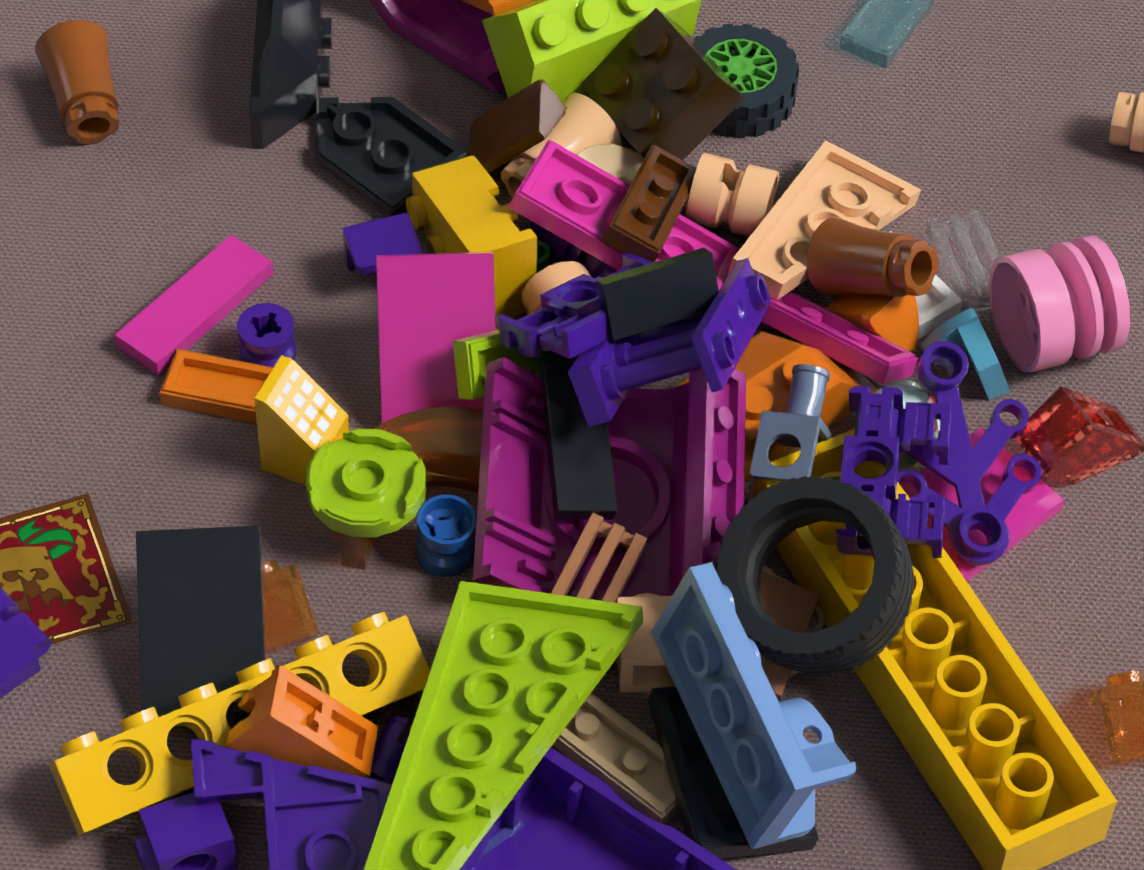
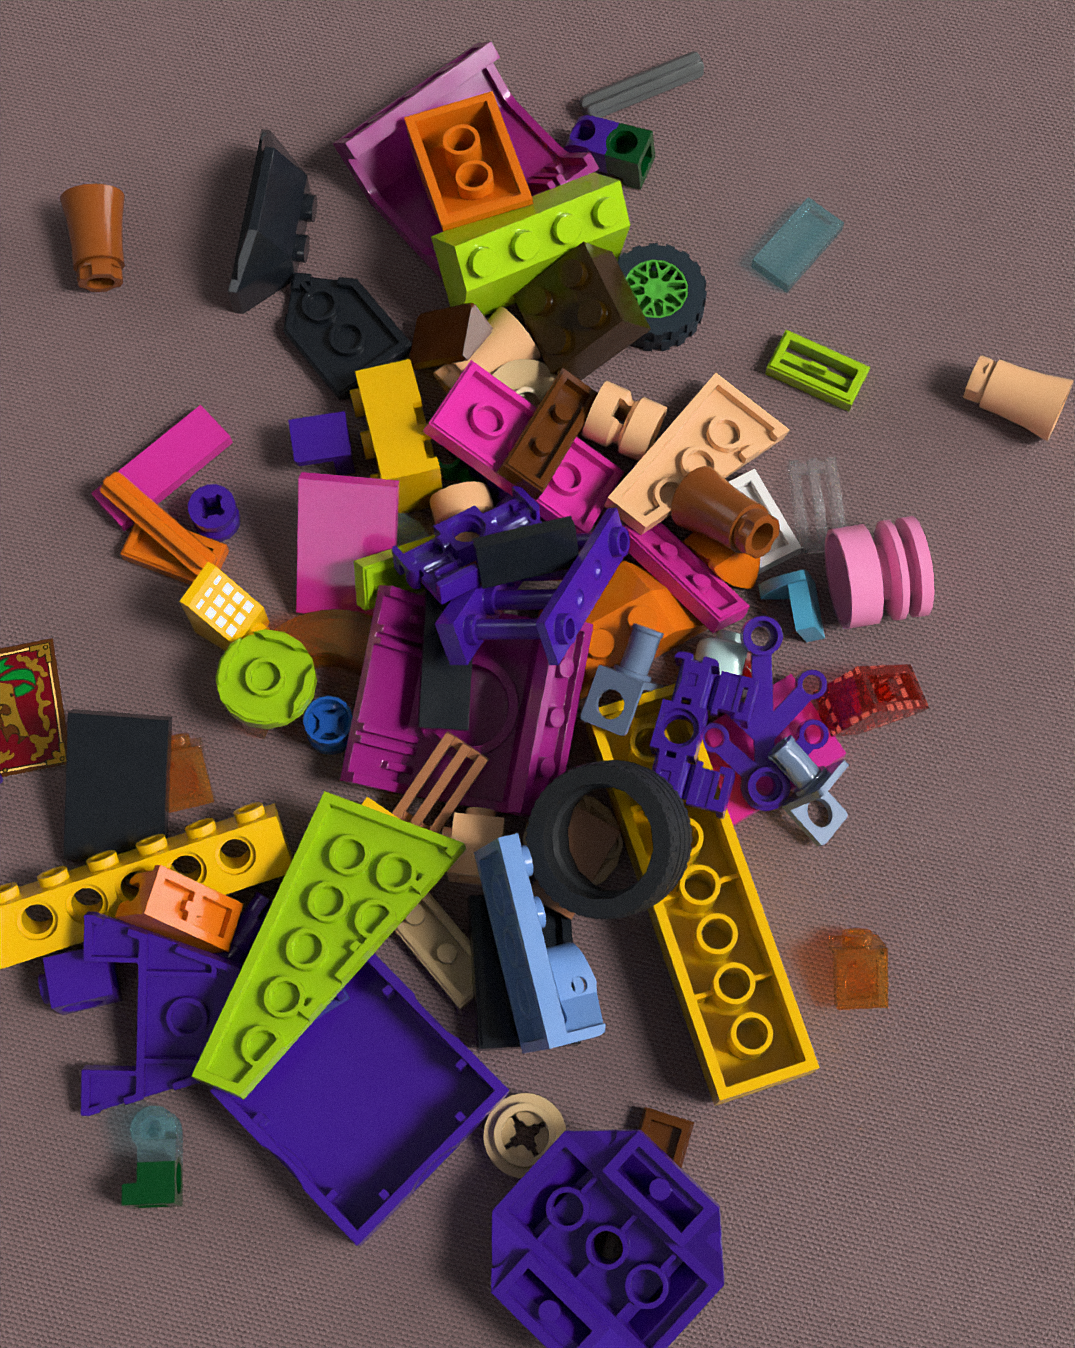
camera: 10 degrees right, 20 degrees up
(198, 348) = (157, 523): none -> orange axle
(936, 140) = (809, 384): none -> lime tile
(1029, 514) = (811, 784): none -> sand blue bracket

